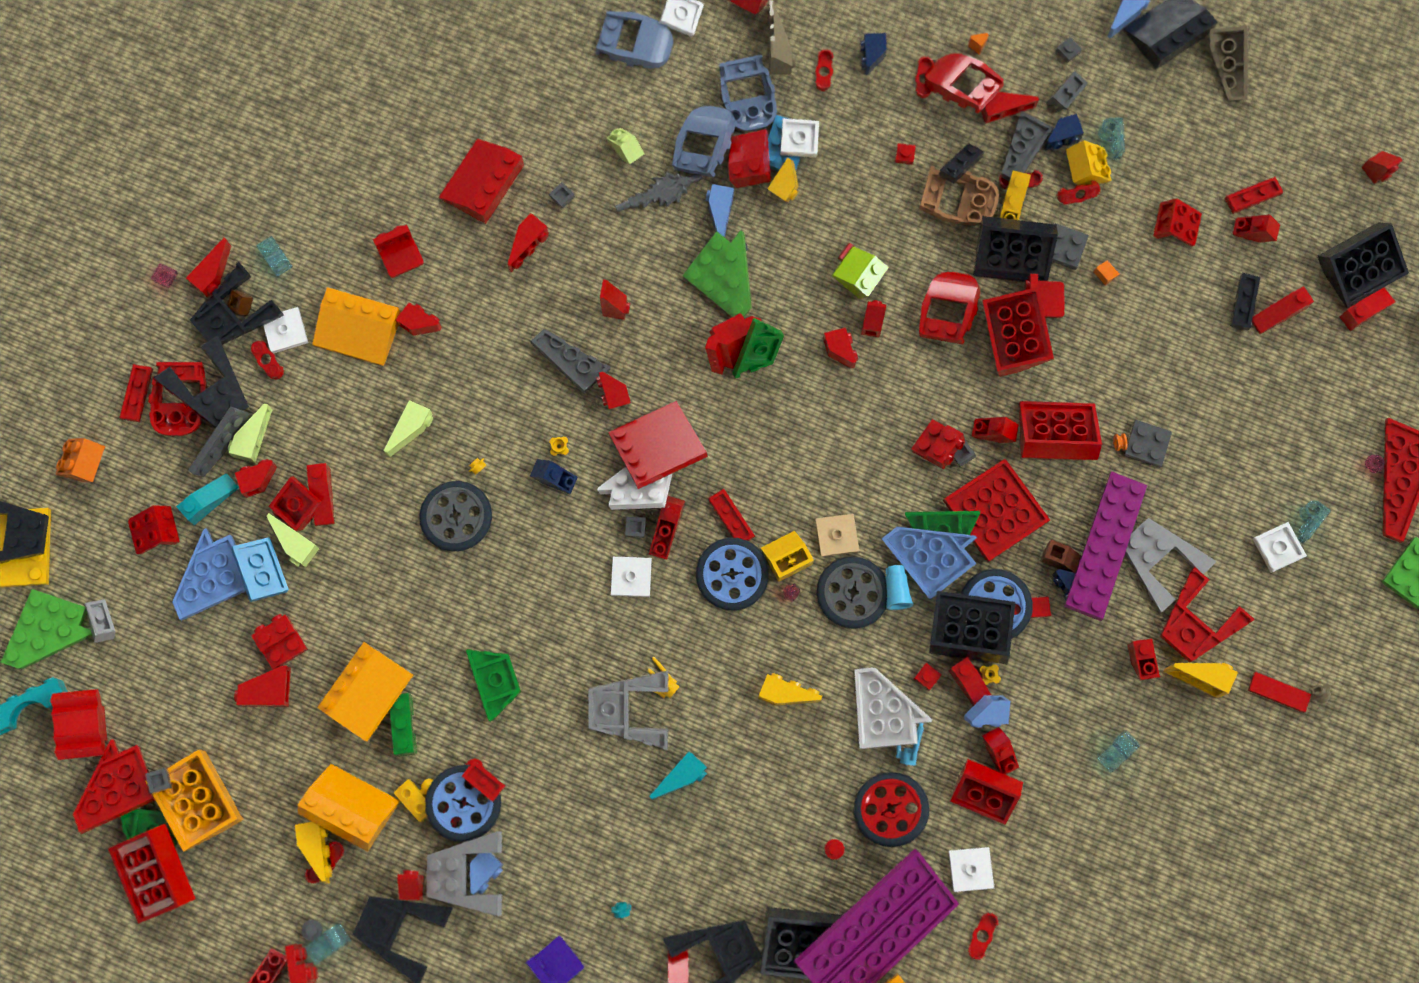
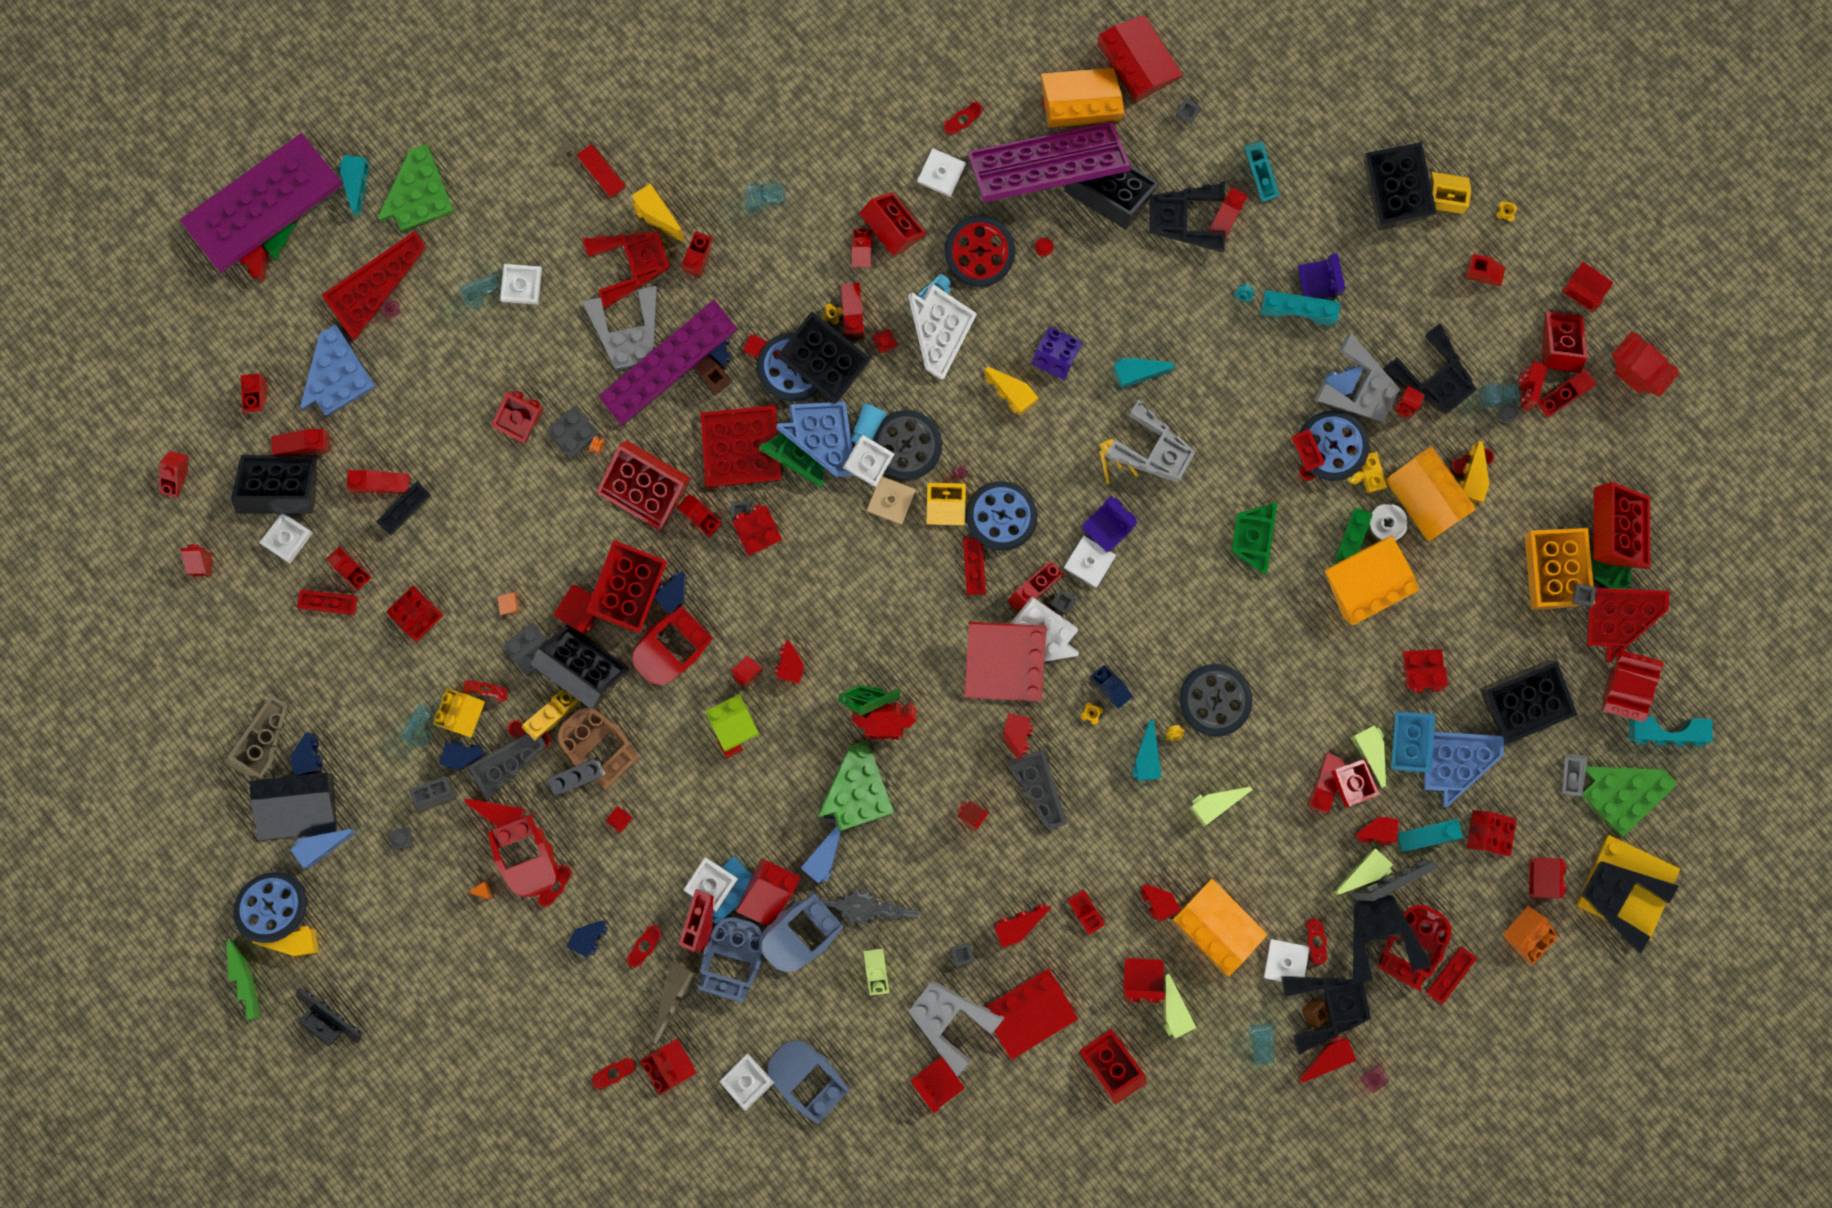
camera: 150 degrees left, 5 degrees up
(85, 513) = (1547, 878): none -> red slope
(170, 662) = (1529, 701): none -> black slope
(266, 690) = (1456, 632): red slope -> none
(355, 238) = (1175, 1012): none -> yellowish green slope
(366, 764) = (1387, 512): none -> white plate
(390, 173) = (1113, 1067): none -> red slope
(476, 282) = (1086, 912): none -> red slope
(489, 430) = (1147, 759): none -> teal slope
(528, 86) = (937, 1084): none -> red bracket
(558, 138) = (935, 1012): none -> light grey wing
(560, 923) = (1283, 304): none -> teal arch
(631, 616) = (1110, 524): none -> dark purple bracket
(766, 752) = (1056, 353): none -> dark purple bracket
(785, 182) = (748, 848): yellow slope -> none
(790, 101) = (698, 922): none -> red slope
(877, 554) = (868, 460): none -> white plate
(974, 352) = (672, 594): none -> dark blue slope
(990, 711) = (853, 282): medium blue slope -> none
(1186, 68) = (305, 756): none -> dark blue slope
(1204, 429) = (517, 415): none -> red plate
(1323, 225) = (286, 538): none -> white plate
(1381, 382) = (335, 374): none -> medium blue wing

